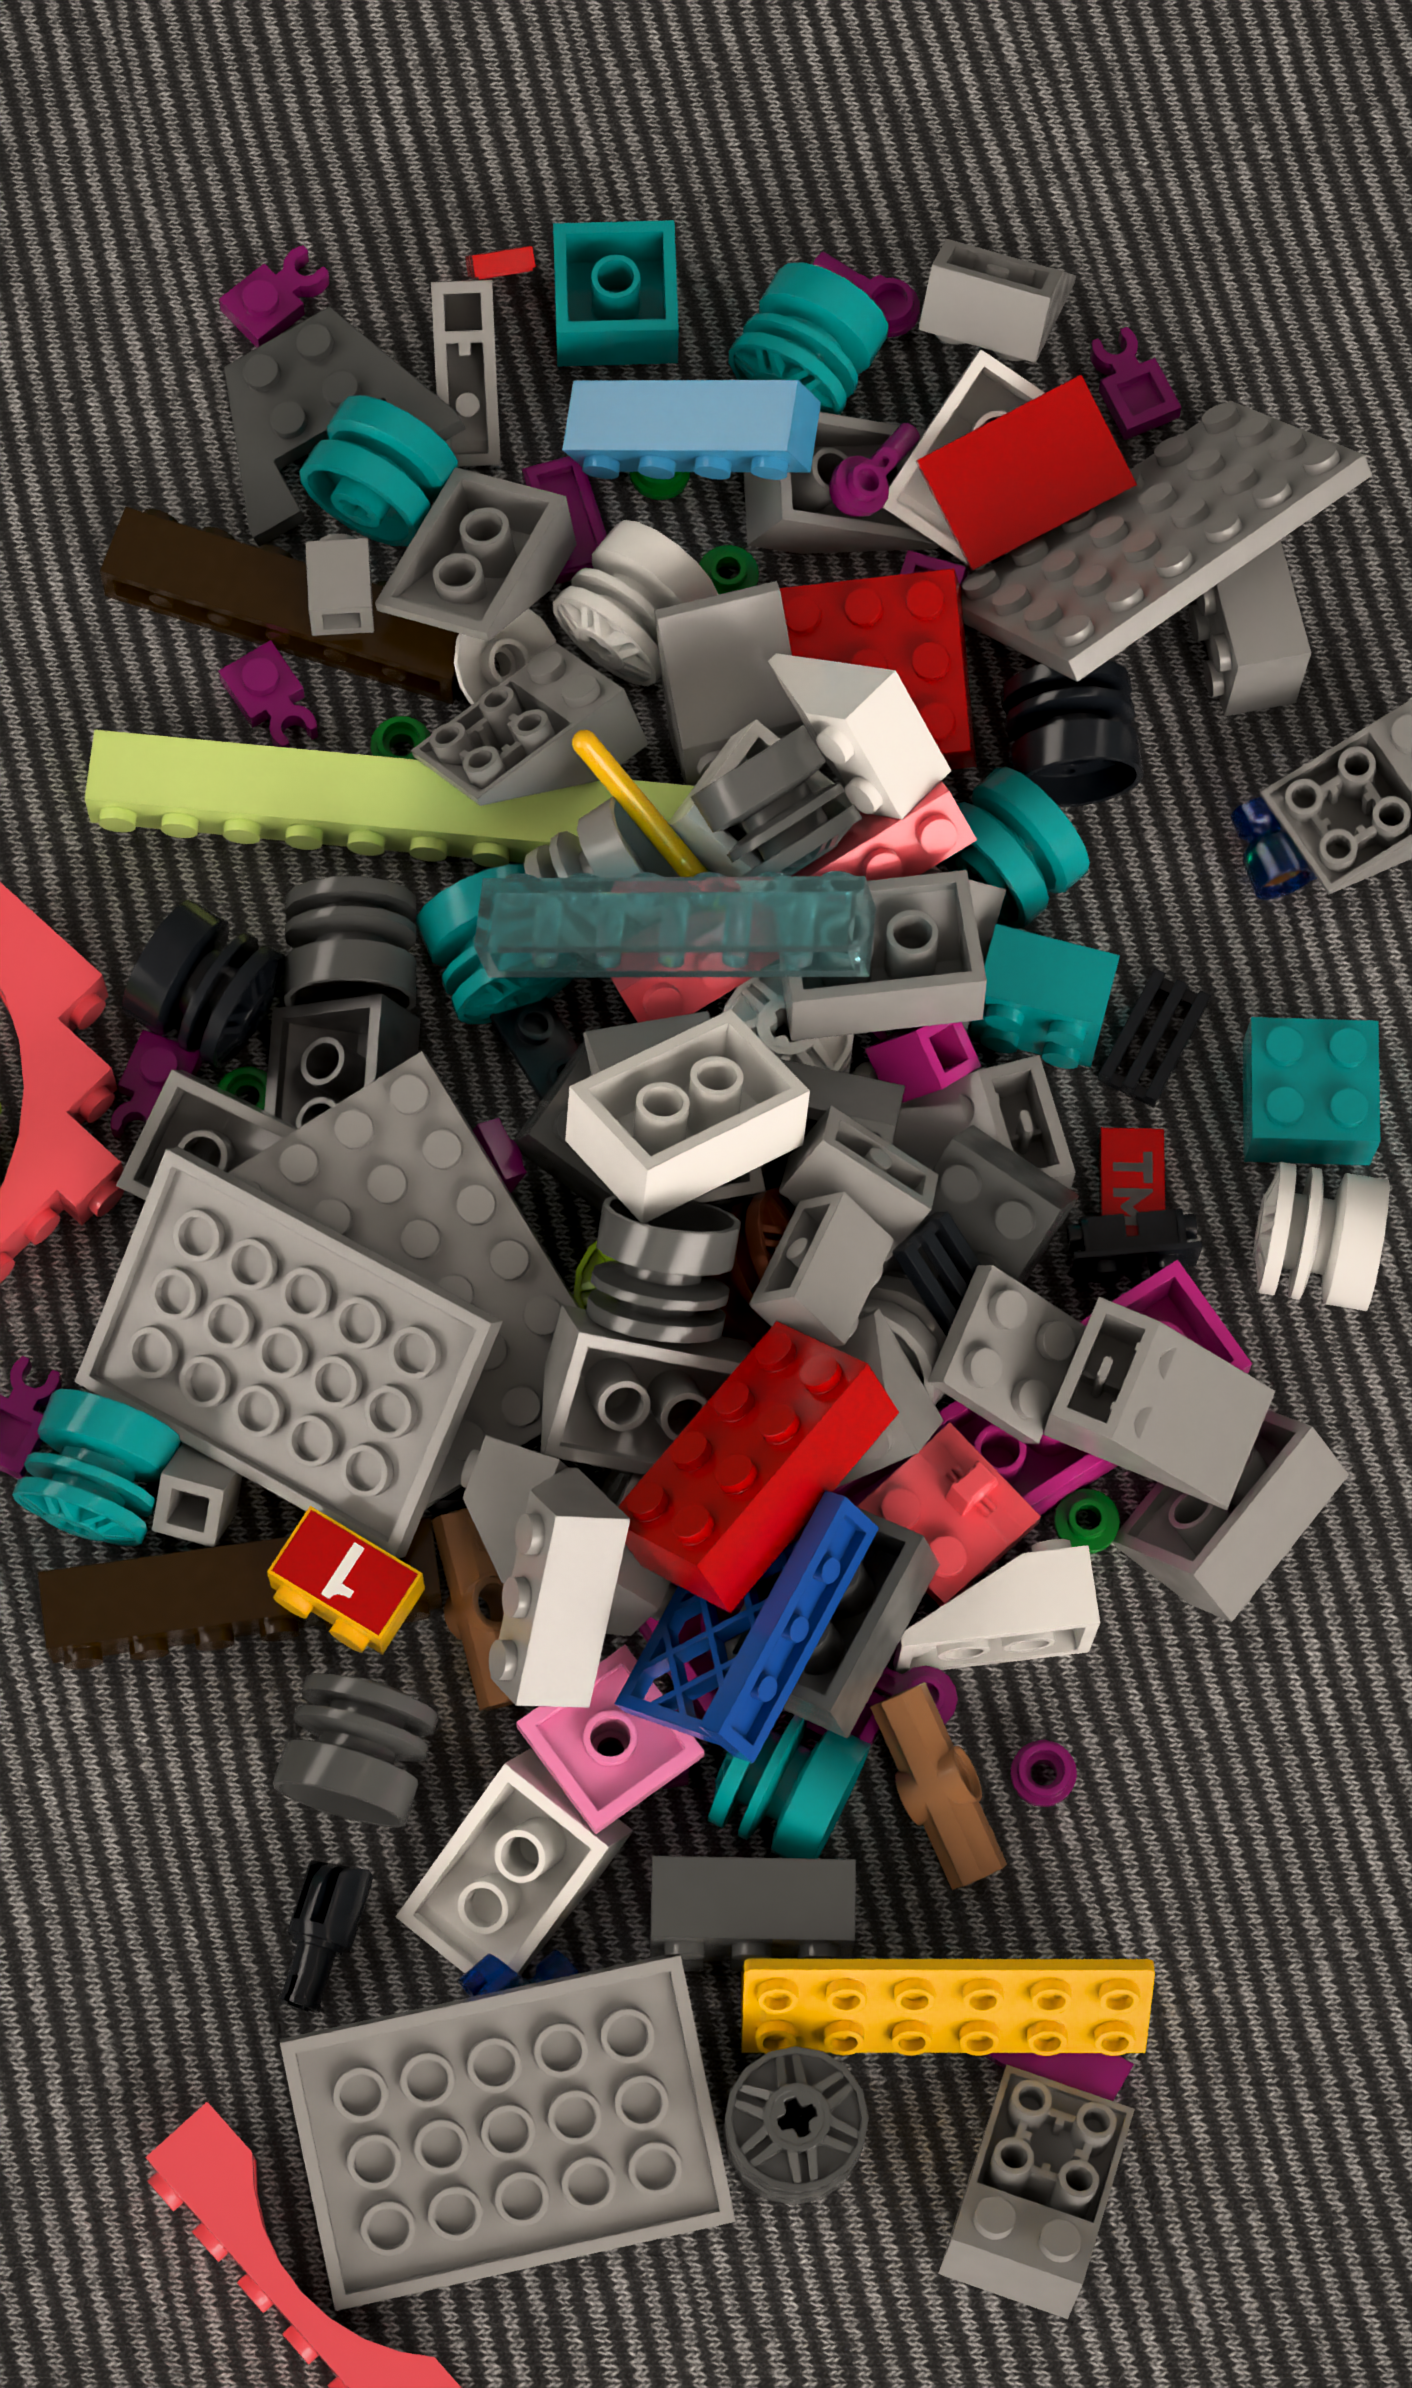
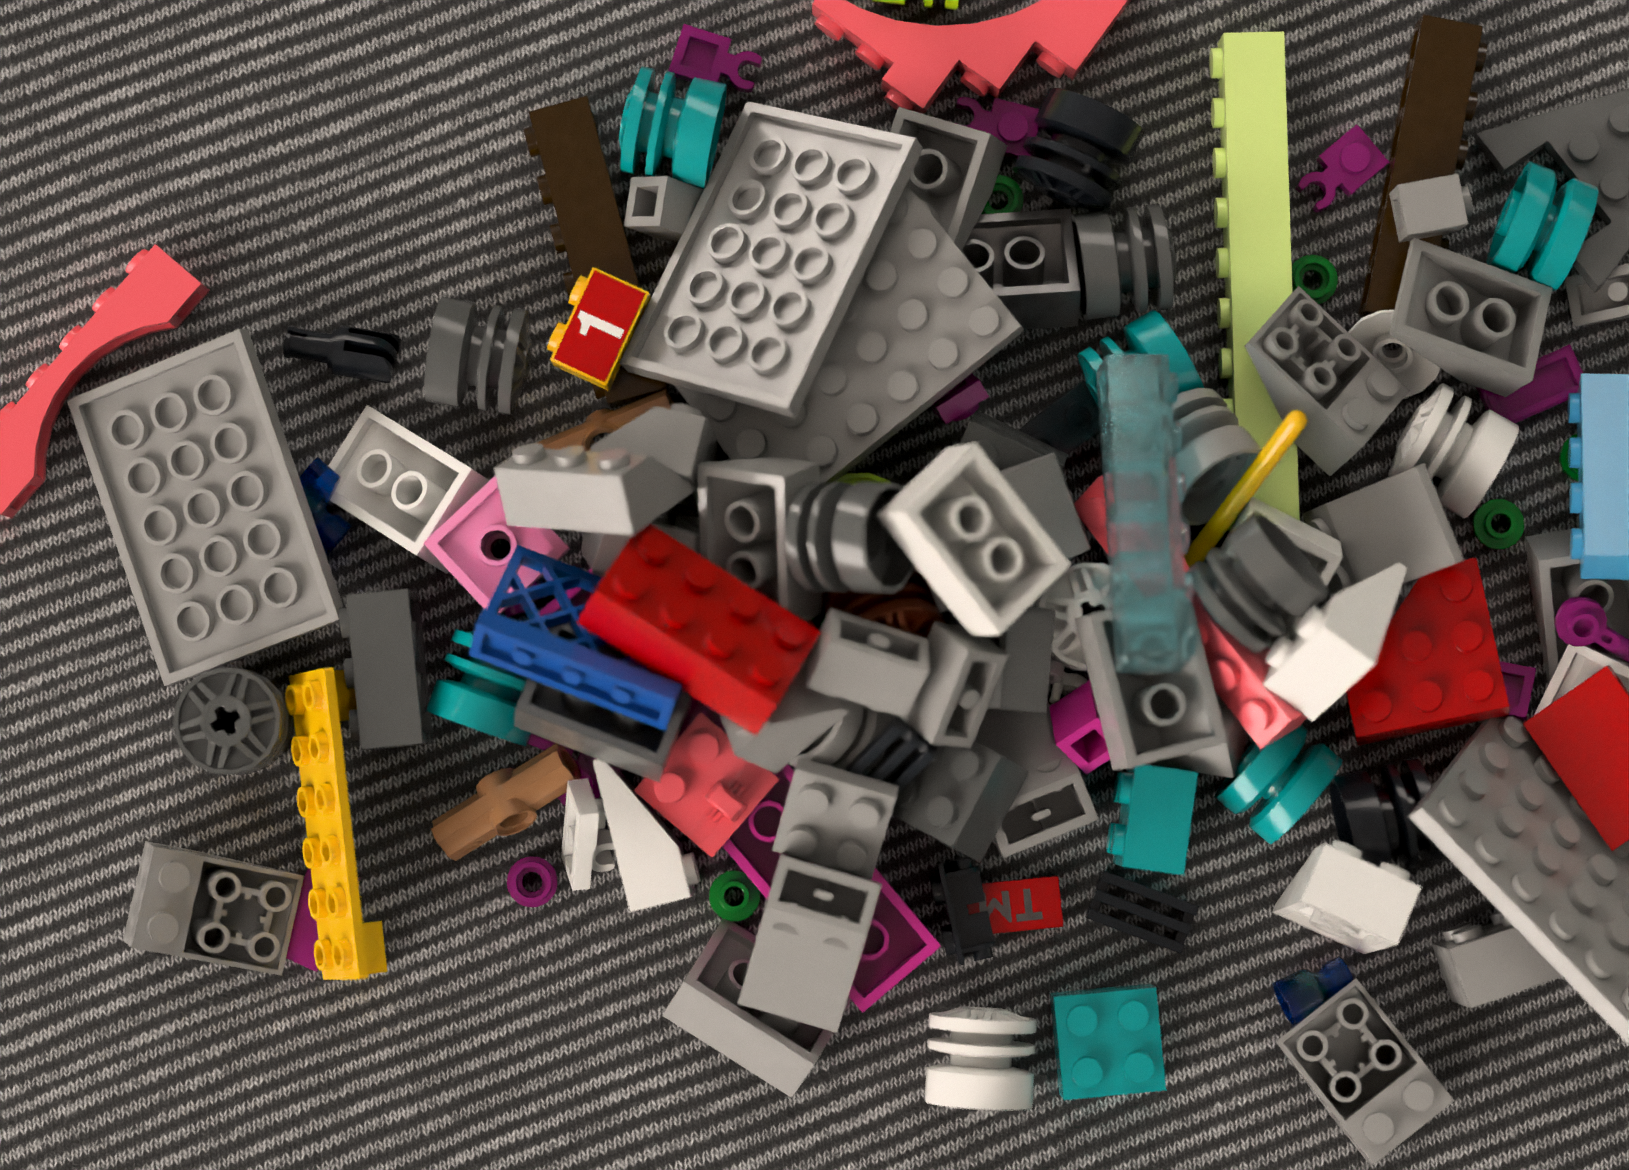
camera: 85 degrees right, 15 degrees up
(992, 1689) = (582, 843): none -> white plate
(1168, 776) = (1349, 898): none -> white slope

